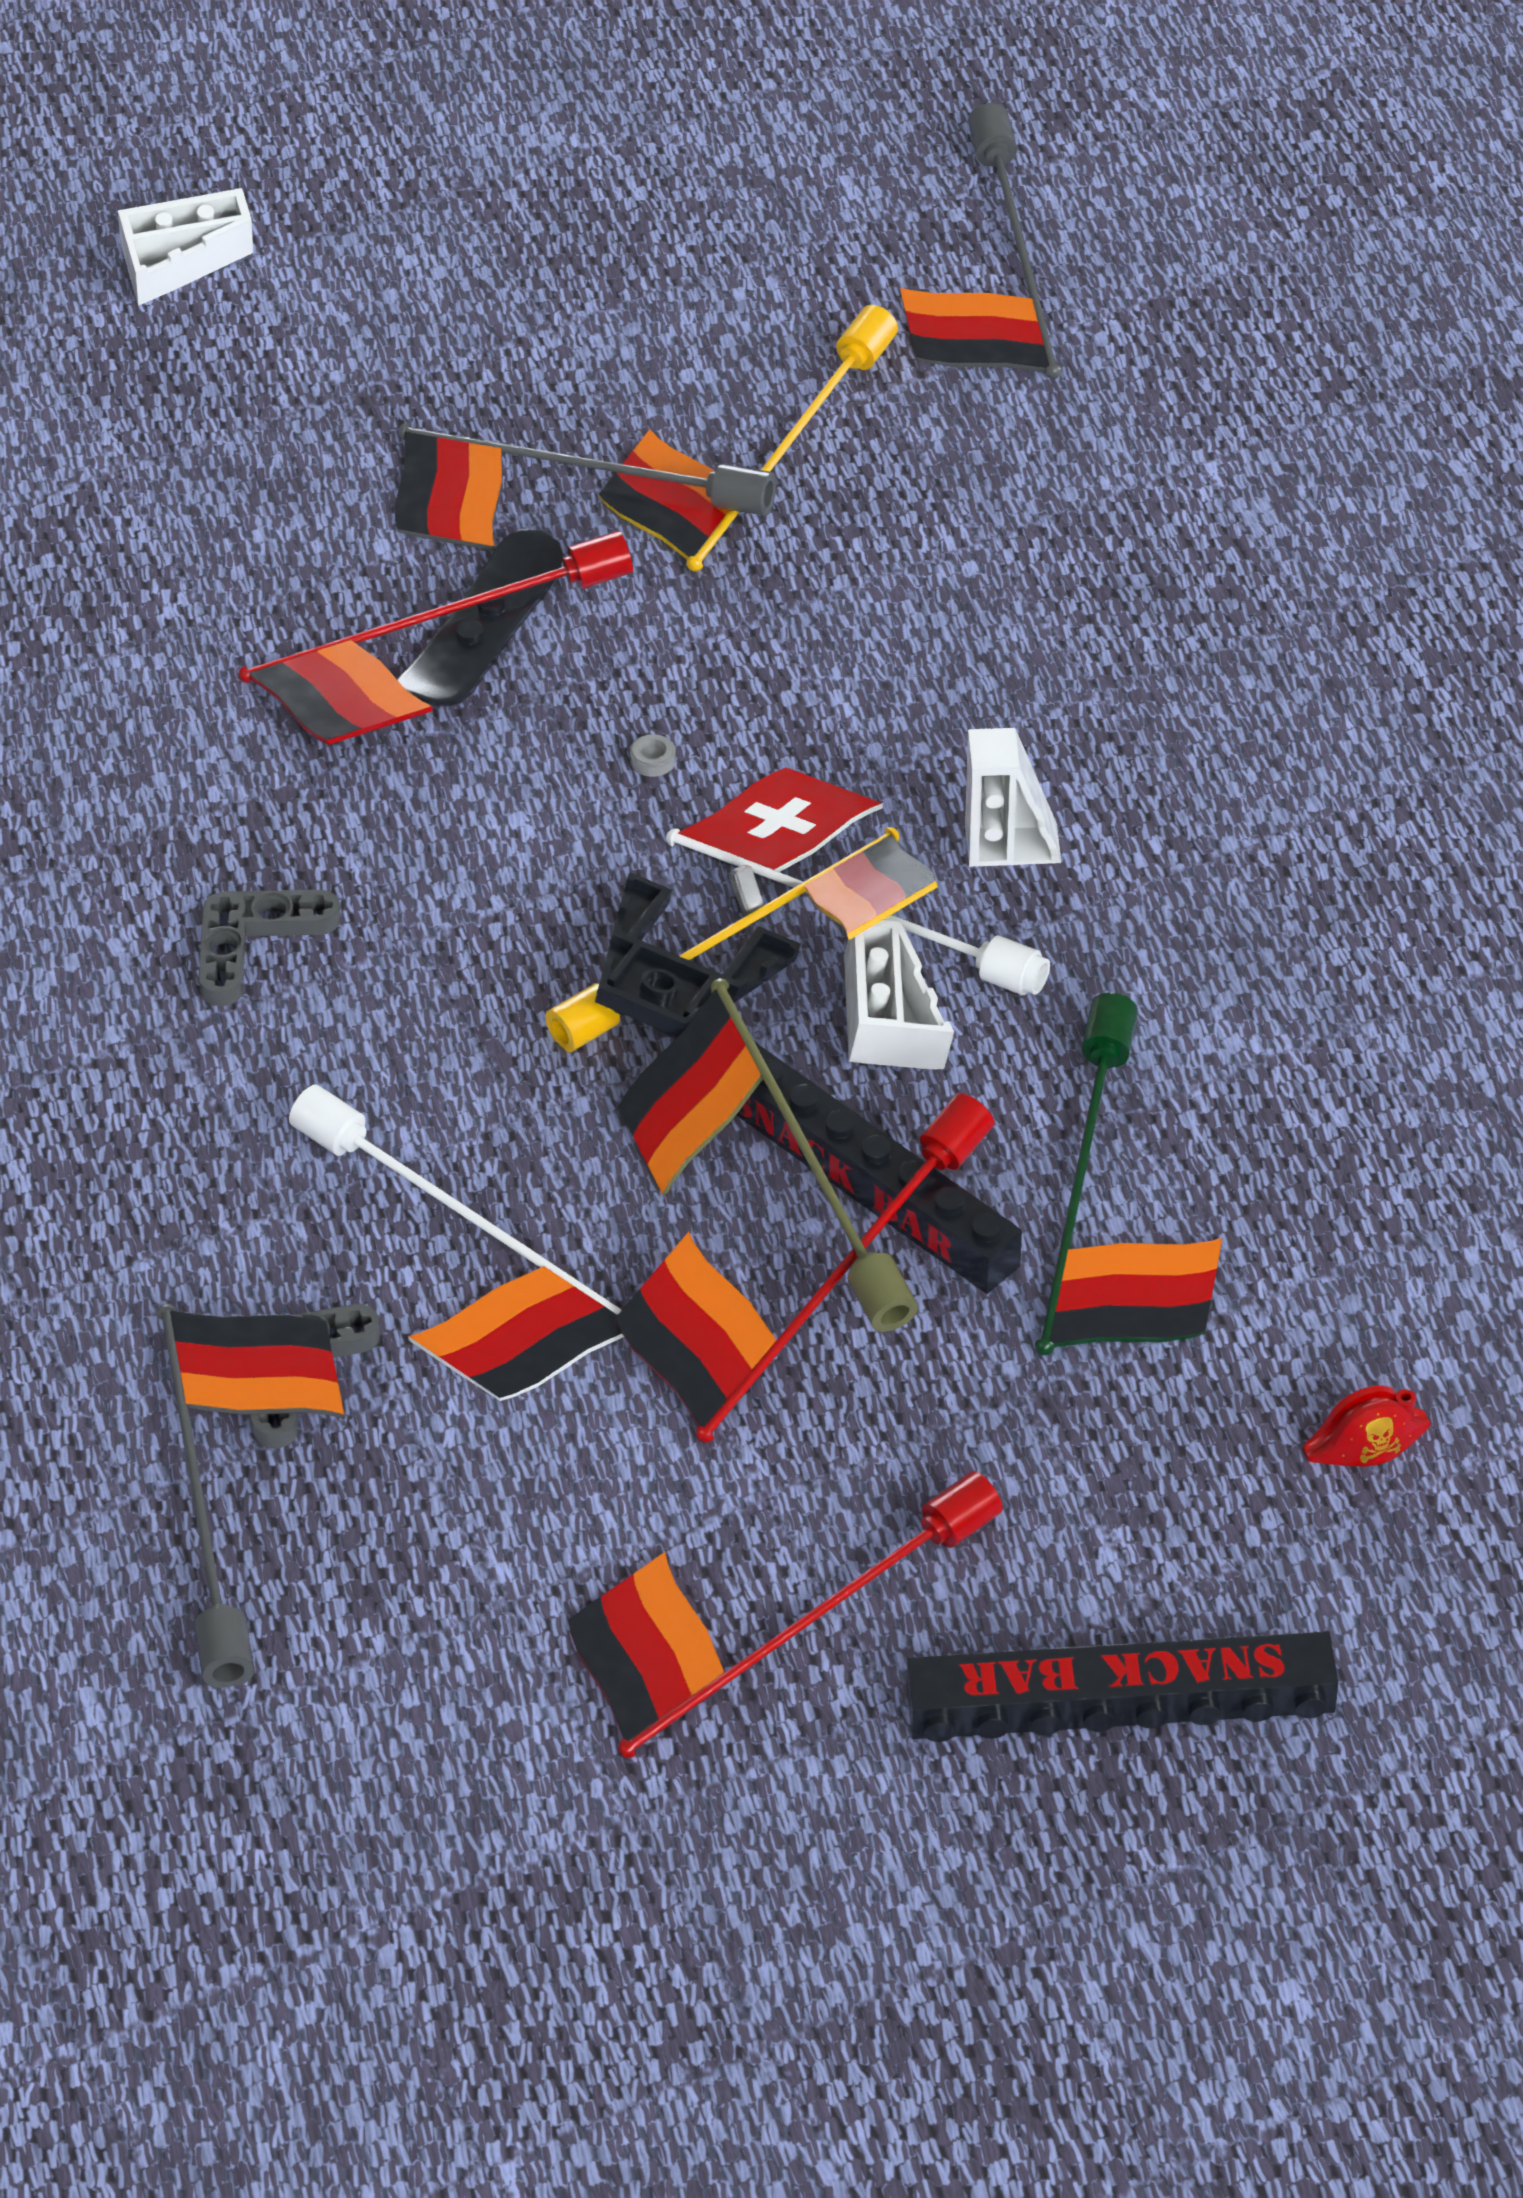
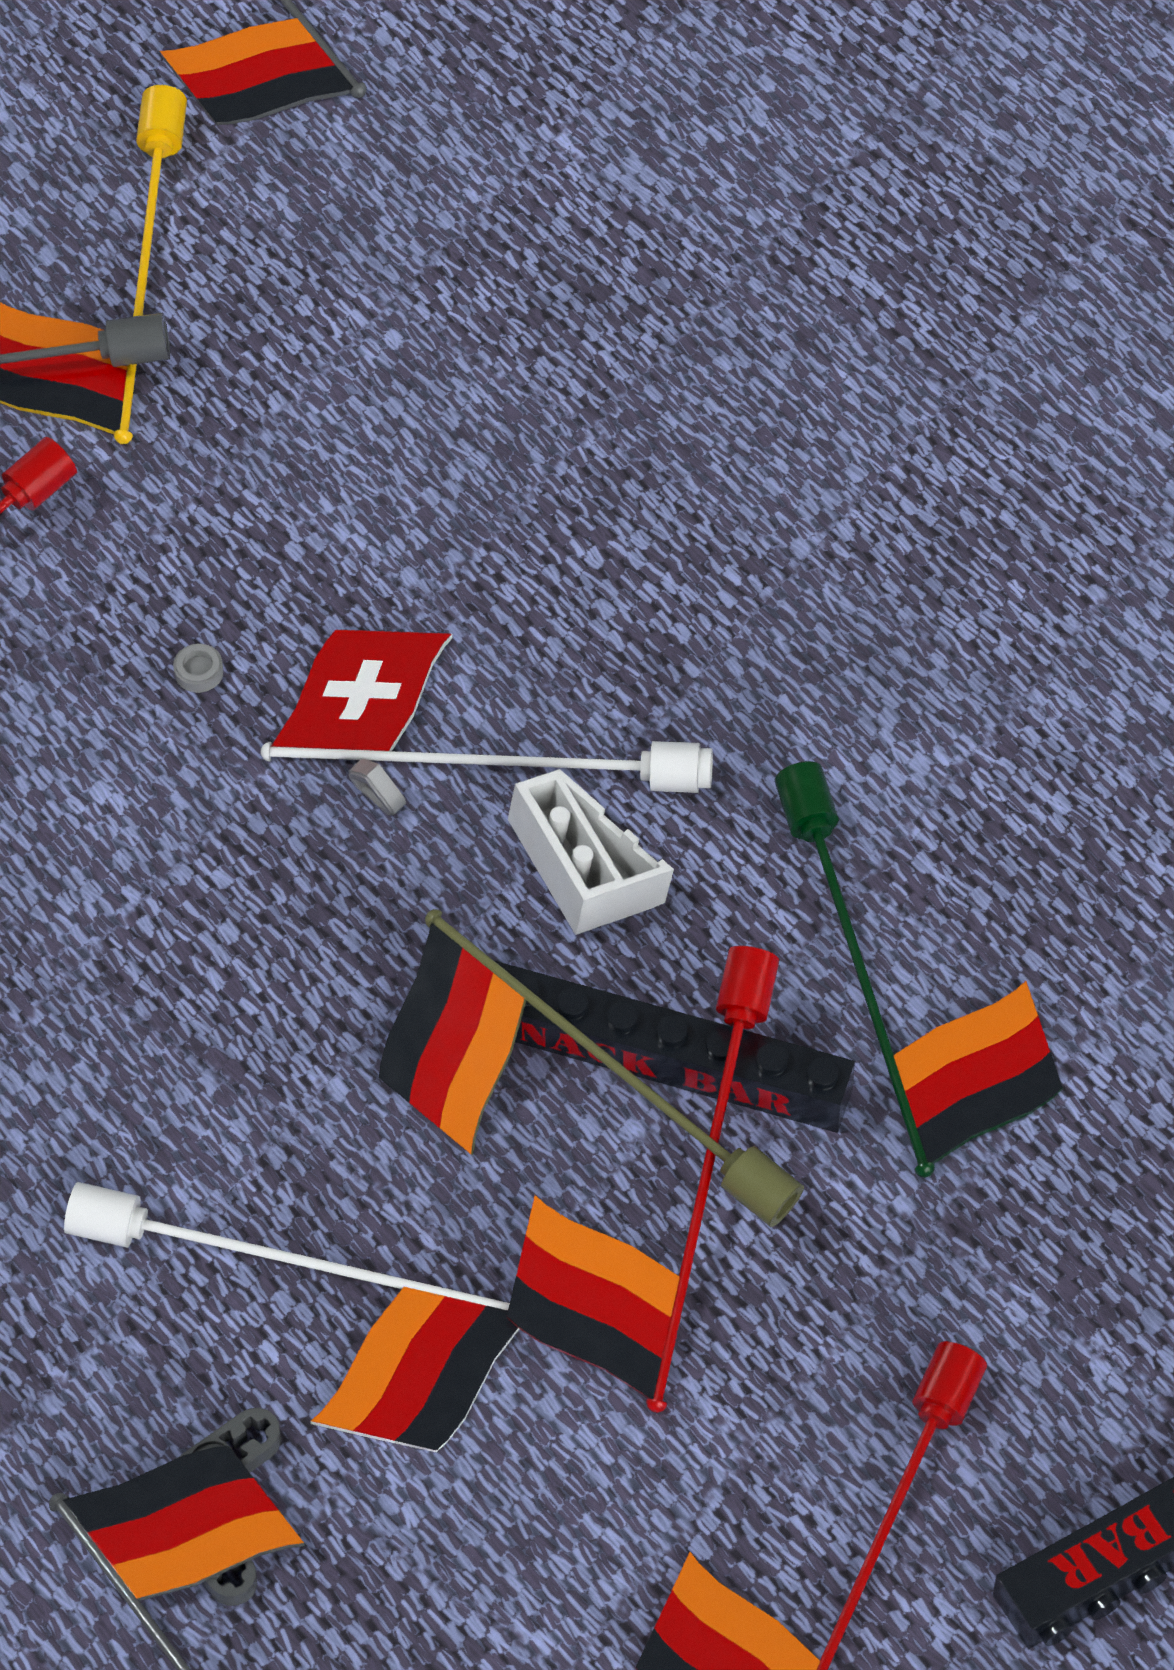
camera: 25 degrees left, 10 degrees up
(668, 988) = (358, 932): black wing -> none
(851, 892) = (494, 741): flag -> none
(1005, 804) = (584, 600): white wedge -> none

